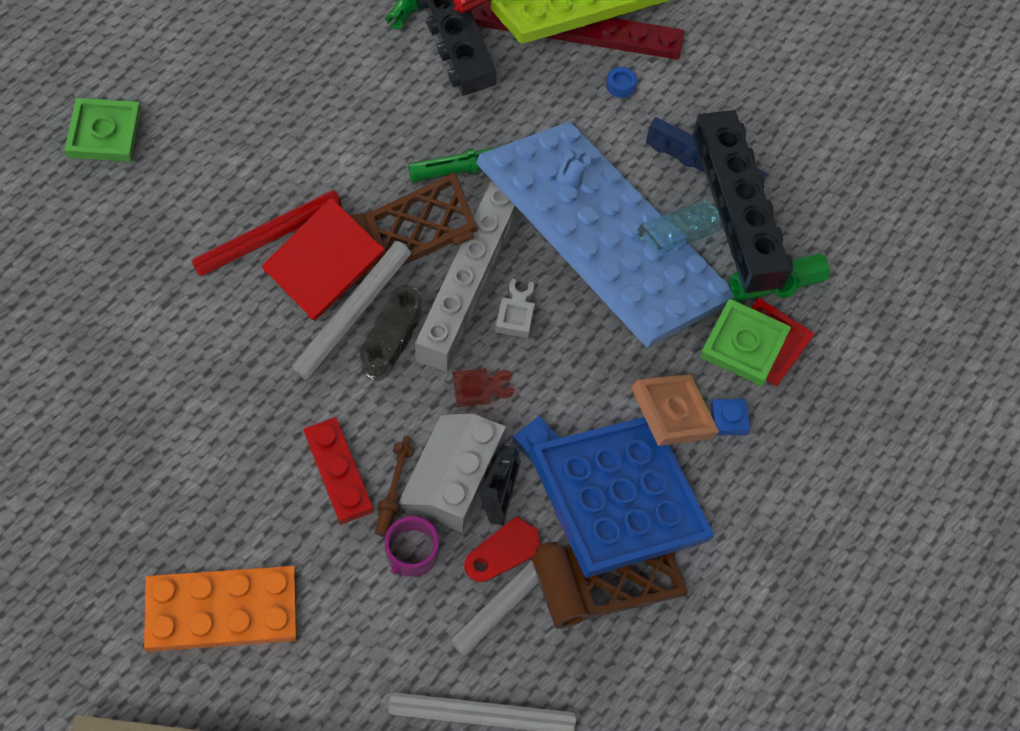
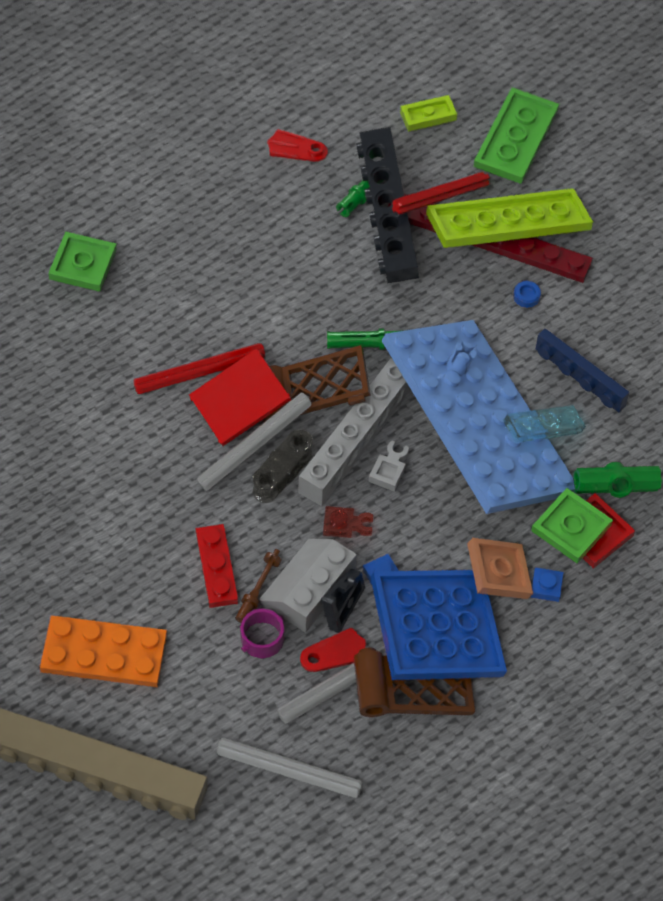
camera: 15 degrees right, 5 degrees down
(742, 202) = (596, 410): black brick -> none

